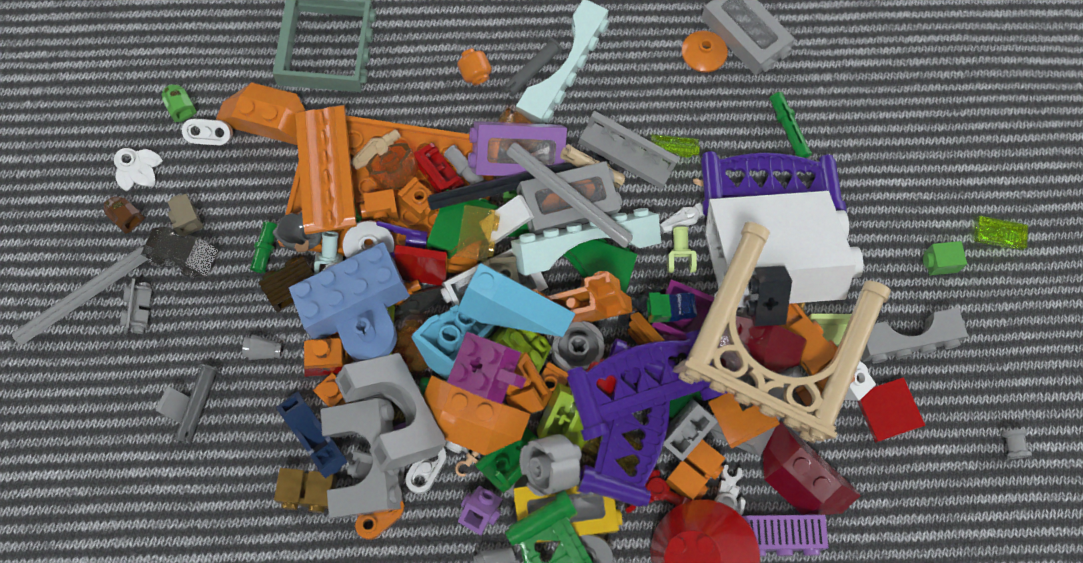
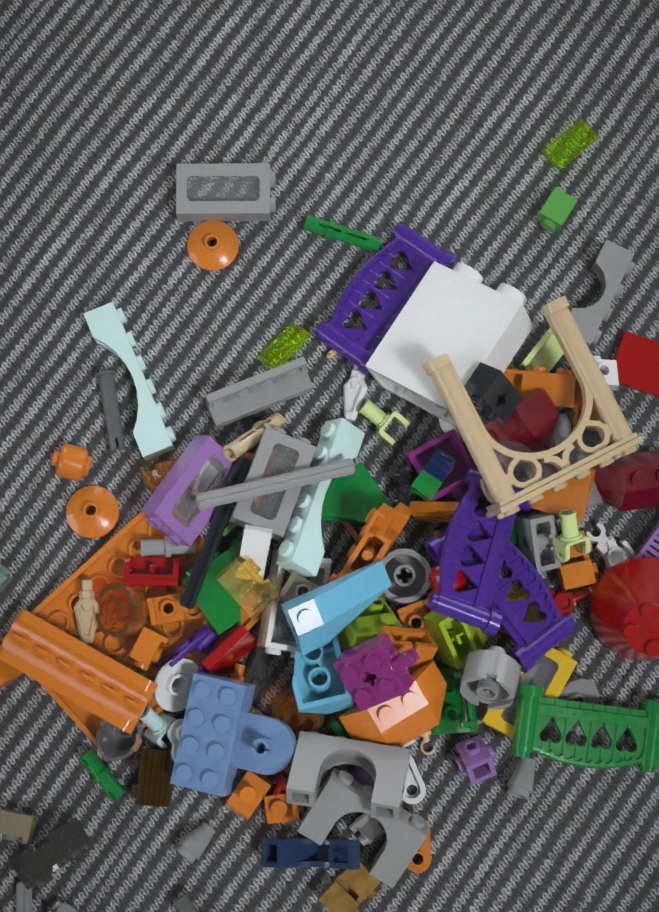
camera: 50 degrees left, 10 degrees up
(451, 117) = (92, 525): none -> orange dish
(712, 445) = (570, 536): none -> yellowish green piece

